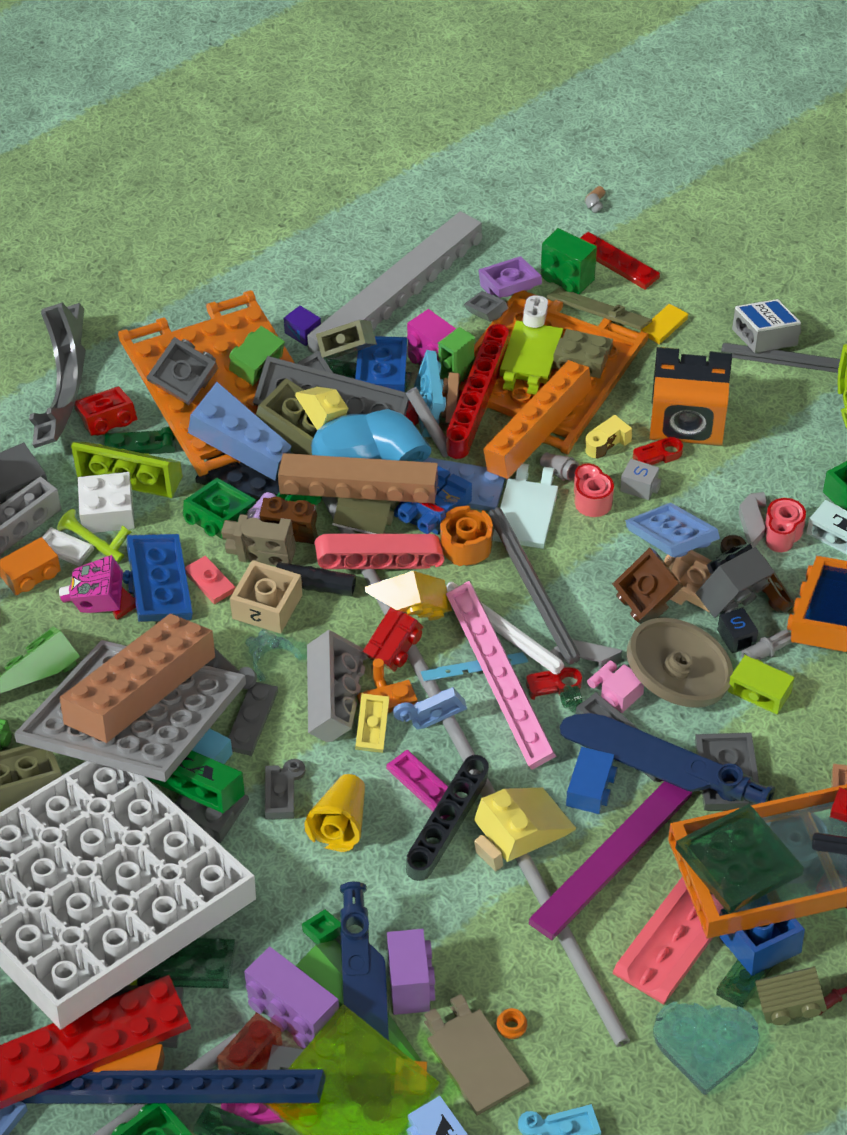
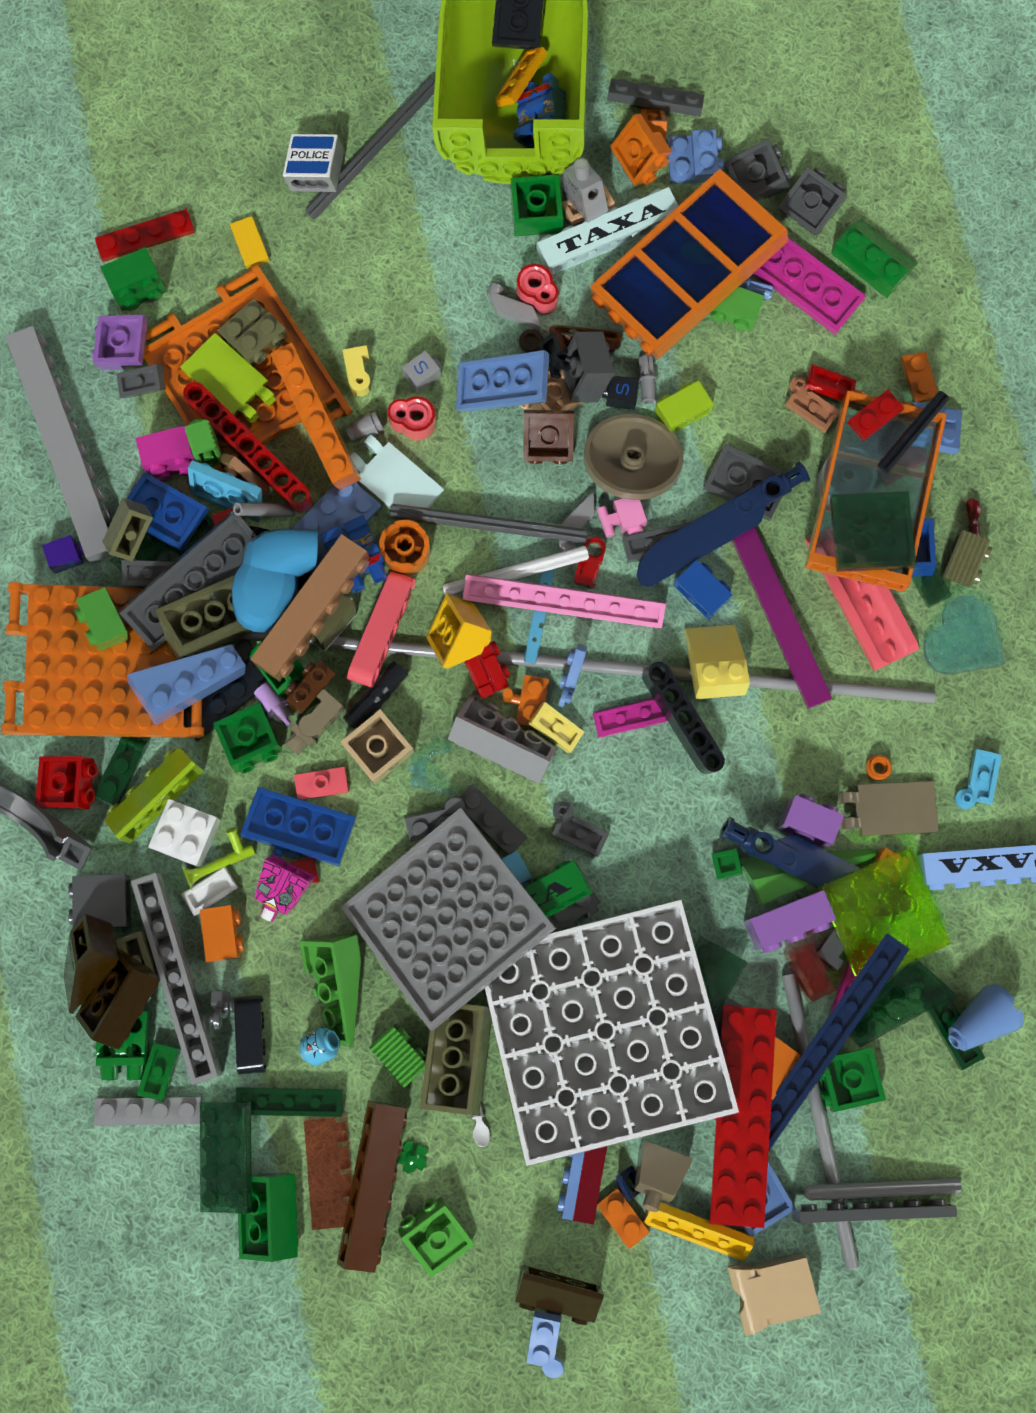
camera: 65 degrees left, 30 degrees up
(137, 678) = (426, 900): nougat brick -> none
(183, 370) = (90, 696): dark grey plate -> none
(322, 404) = (208, 595): light yellow slope -> none
(338, 815) = (631, 797): yellow cone -> none
(489, 852) = (728, 703): tan tile -> none
(535, 311) = (177, 348): white beam -> none
(571, 697) = (615, 558): clear green plate -> none
(593, 198) = (52, 208): light grey arm -> none
(614, 313) = (199, 286): olive piece -> none
(656, 452) = (396, 340): red piece -> none
(690, 396) = (368, 277): piece -> none

